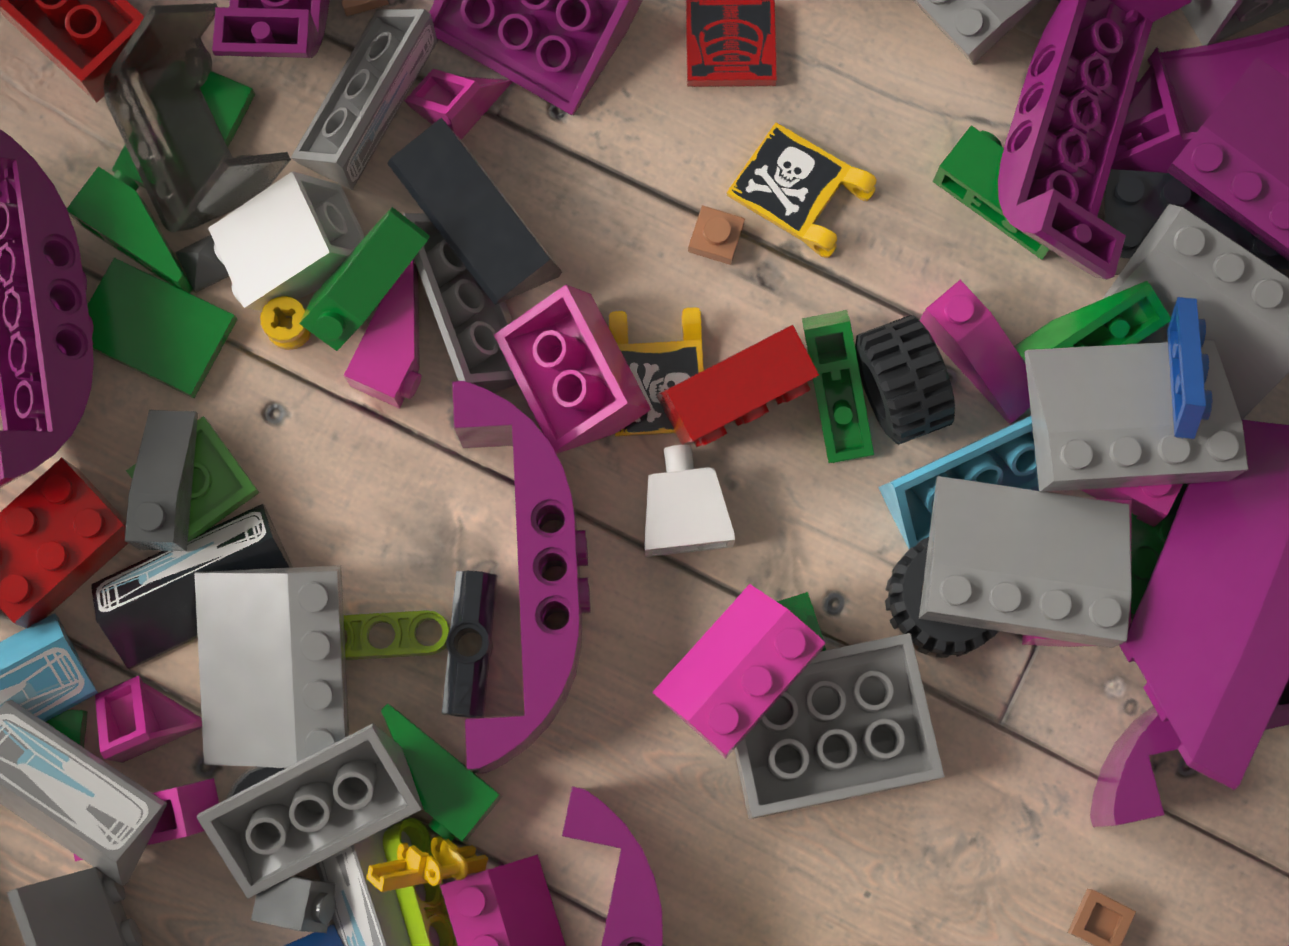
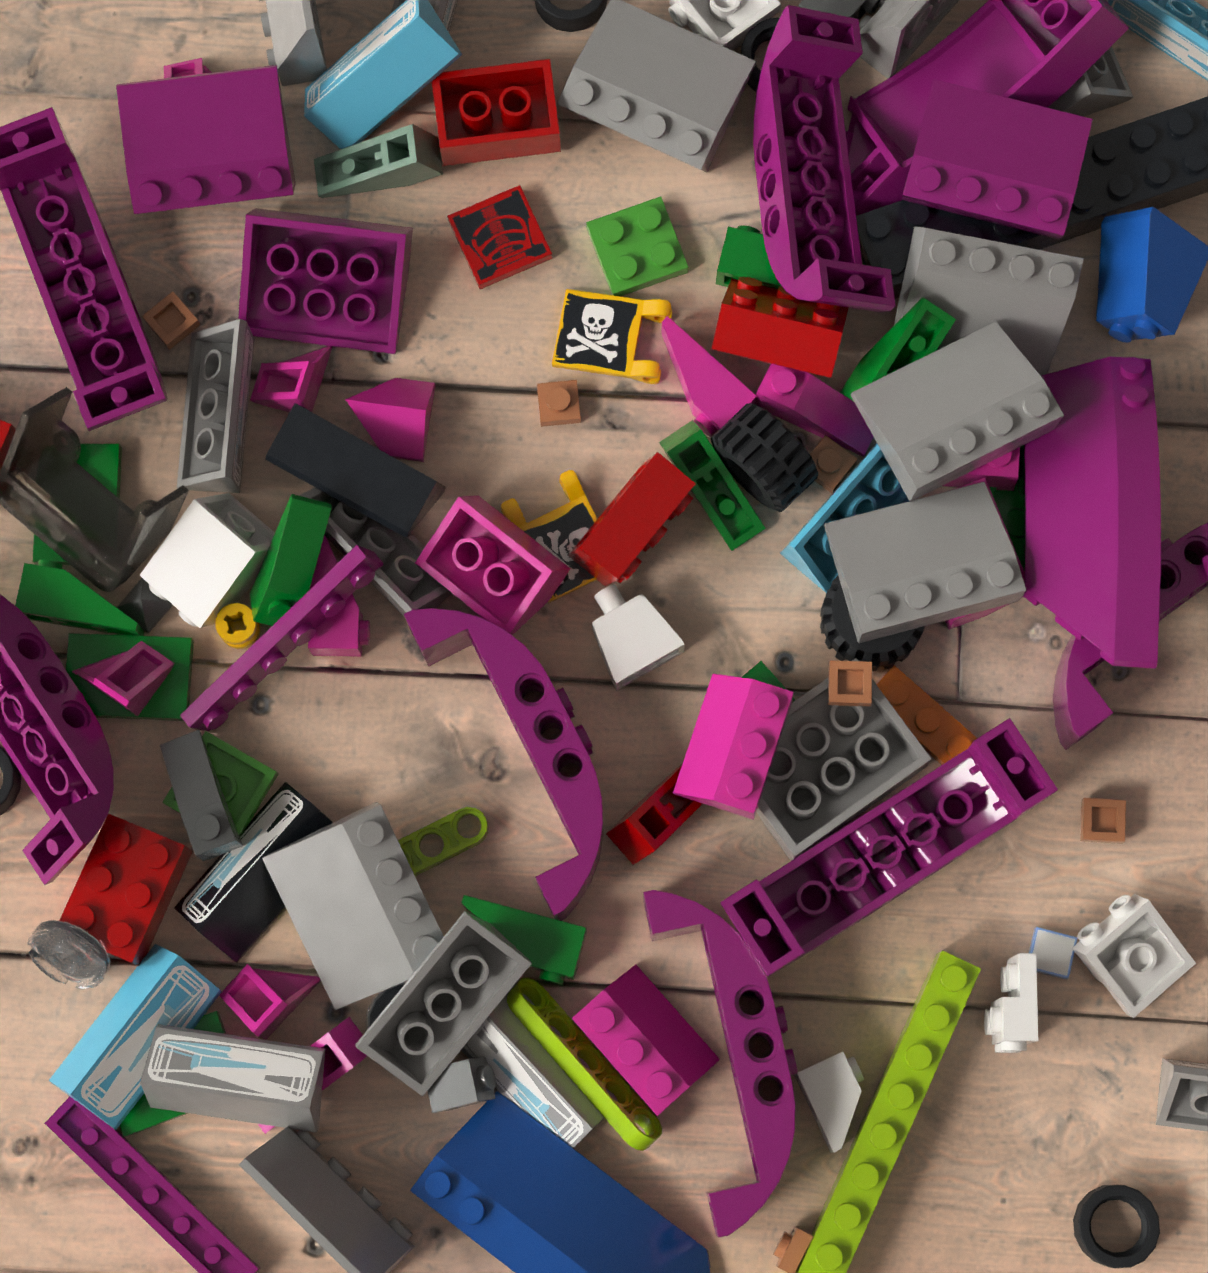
camera: 20 degrees left, 0 degrees up
(150, 328) = (129, 676): none -> dark pink slope
(329, 350) = (273, 647): none -> magenta plate
(420, 867) = (553, 1008): yellow piece -> none
(468, 675) = (500, 795): black piece -> none
(544, 178) = (397, 416): none -> dark pink slope
(619, 710) = (652, 820): none -> red slope
(856, 855) = (889, 849): none -> magenta slope
(867, 110) = (637, 247): none -> bright green plate
(878, 280) = (708, 386): none -> dark pink slope
(891, 658) = (850, 683): none -> nougat plate
(960, 737) = (928, 721): none -> orange plate
(973, 417) = (831, 463): none -> nougat plate
(980, 250) = (778, 327): none -> red brick
(1188, 368) = (984, 354): blue plate -> none

